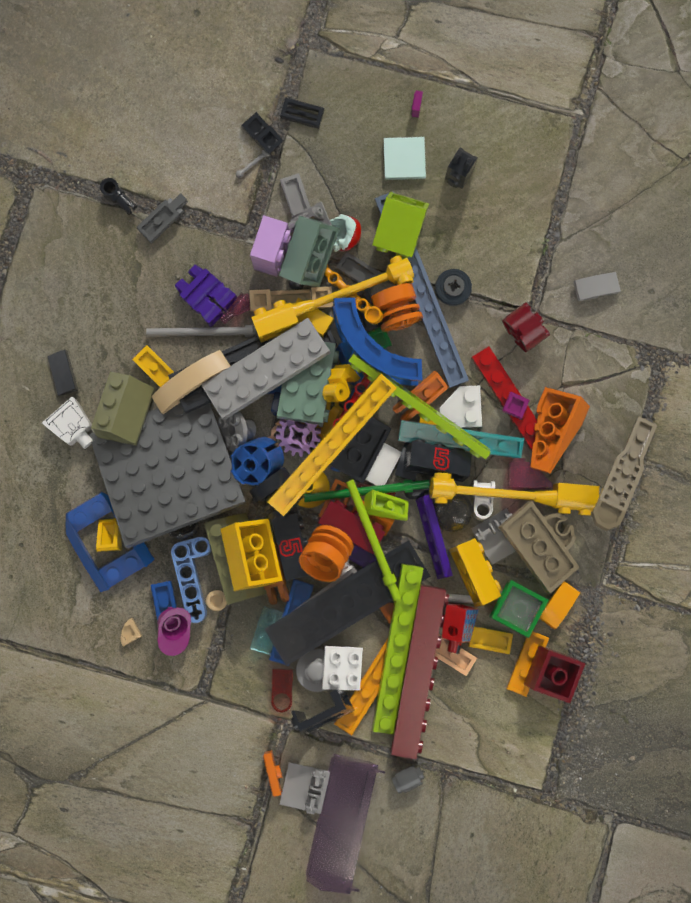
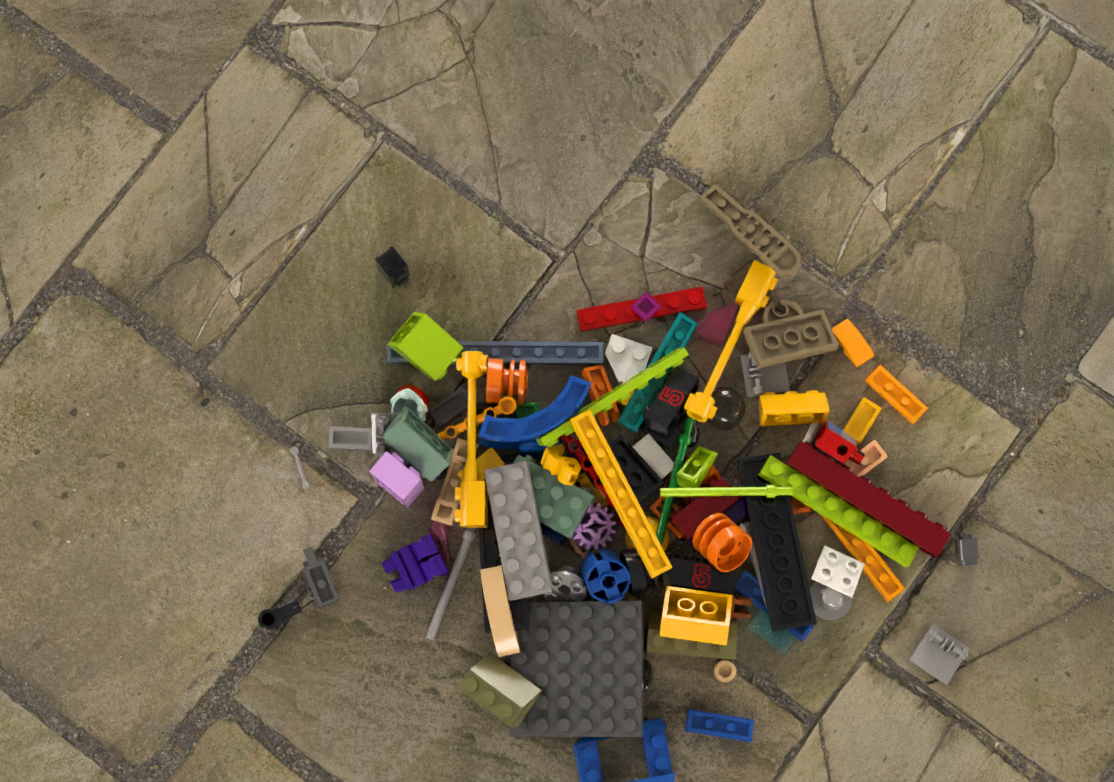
camera: 70 degrees left, 5 degrees down
(62, 372) = (436, 740): black slope -> none
(70, 423) = (493, 750): white torso -> none
(108, 536) = (620, 753): yellow slope -> none
(130, 632) = (724, 770): tan tile -> none
(153, 366) = (469, 644): yellow plate -> none
(173, 630) = (740, 722): magenta piece -> none
(193, 580) = (697, 686): medium blue beam -> none
(262, 133) = (274, 446): black slope -> none
(274, 773) = (914, 678): orange plate -> none
(282, 683) = (830, 638): clear red piece -> none
(315, 124) = (274, 407): black tile -> none
(341, 824) = (986, 632): piece -> none
(342, 707) = (877, 584): black panel -> none
(404, 158) = (357, 318): light aqua tile -> none
(416, 103) = (308, 284): magenta tile -> none
(434, 537) = (743, 434): dark purple tile -> none
(451, 294) = (506, 328): black wheel -> none
(482, 500) = (727, 372): white piece -> none
(518, 608) = (842, 381): piece -> none
(525, 327) = (574, 267): dark red brick -> none
(554, 674) = (917, 372): dark red brick -> none
(557, 424) = (681, 277): orange wedge -> none
(596, 286) = (559, 186): light grey slope -> none

